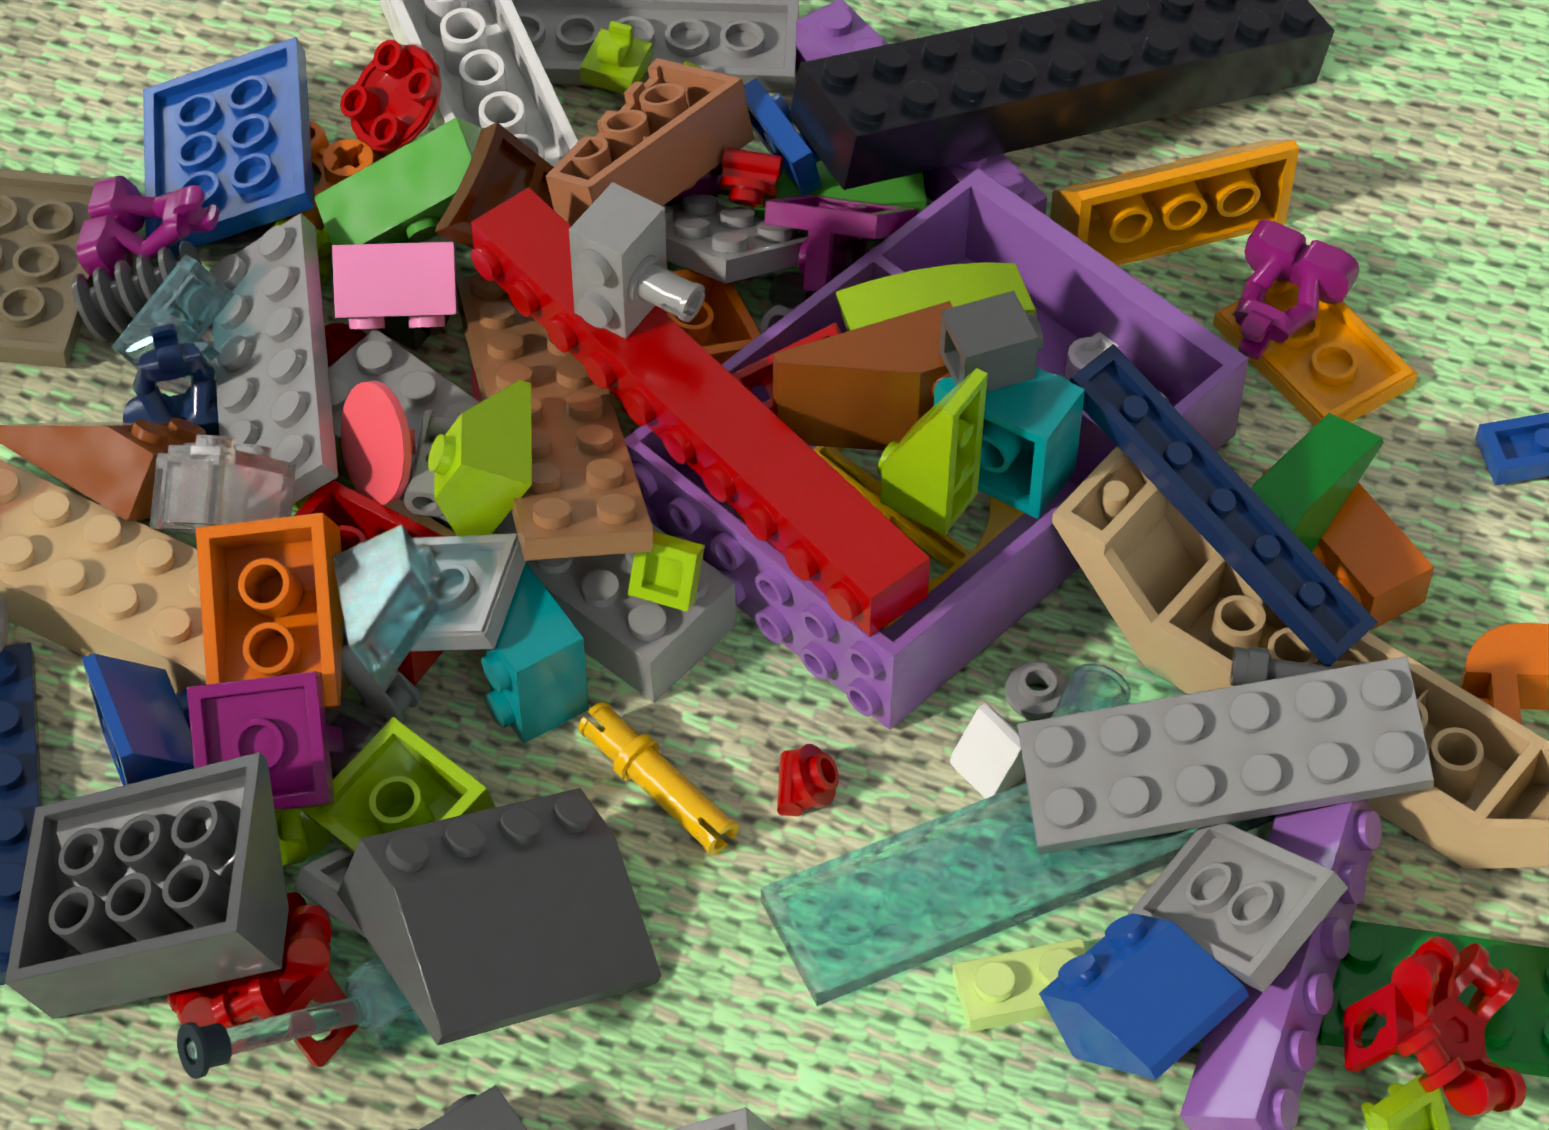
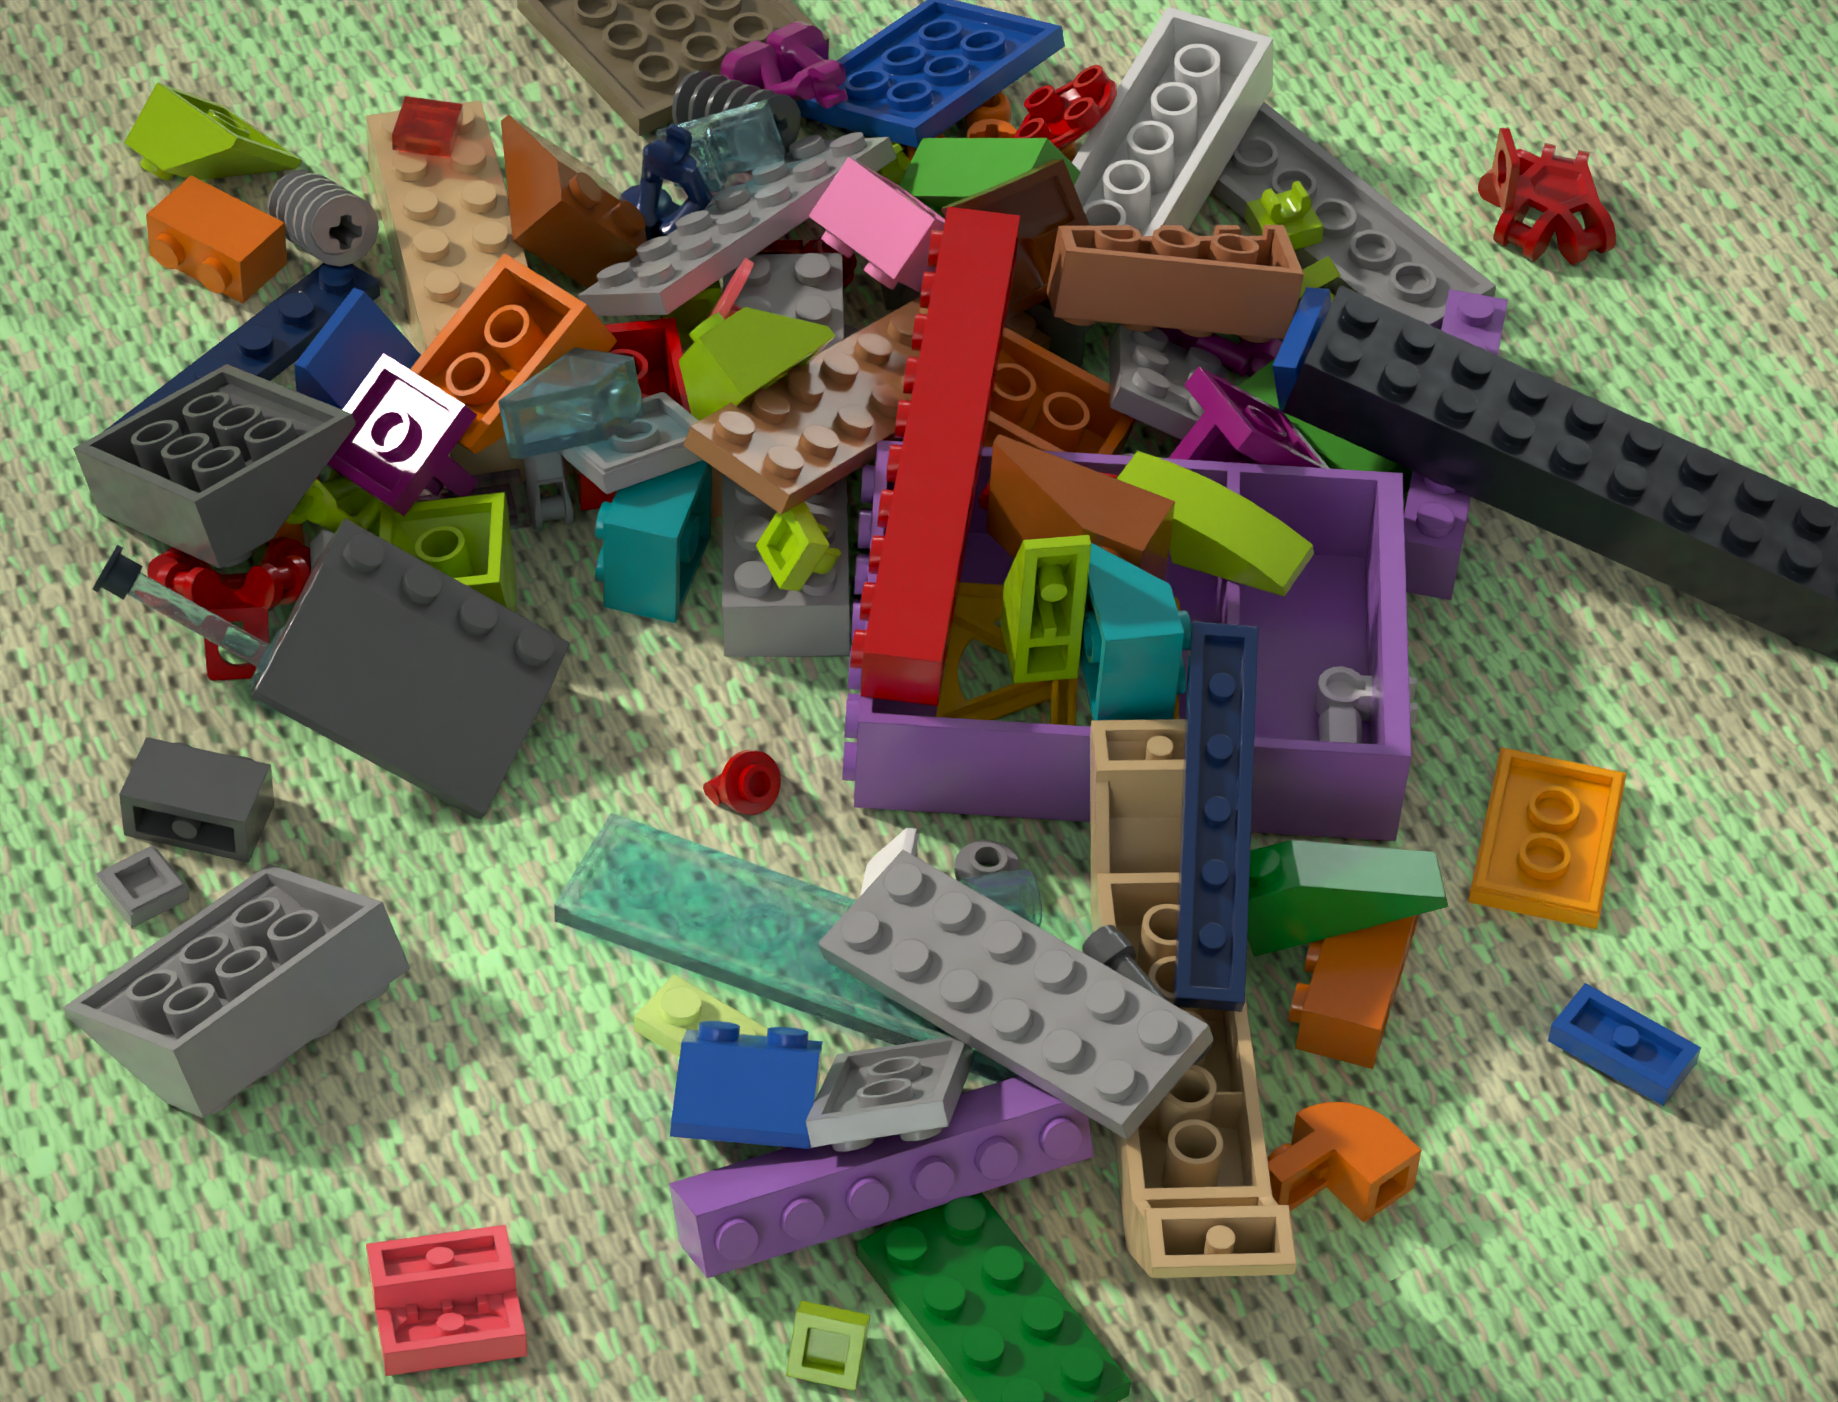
camera: 45 degrees right, 5 degrees down
(219, 485) = (572, 250): clear brick -> none
(623, 264) = (974, 293): light grey brick -> none
(638, 760) = (652, 677): yellow pin -> none
(750, 176) = (1244, 358): red plate -> none
(991, 337) = (1141, 539): dark grey brick -> none
(1180, 201) = (1569, 646): light orange slope -> none
(1283, 255) = (1593, 740): magenta piece -> none
(1439, 1028) = (918, 1301): red piece -> none

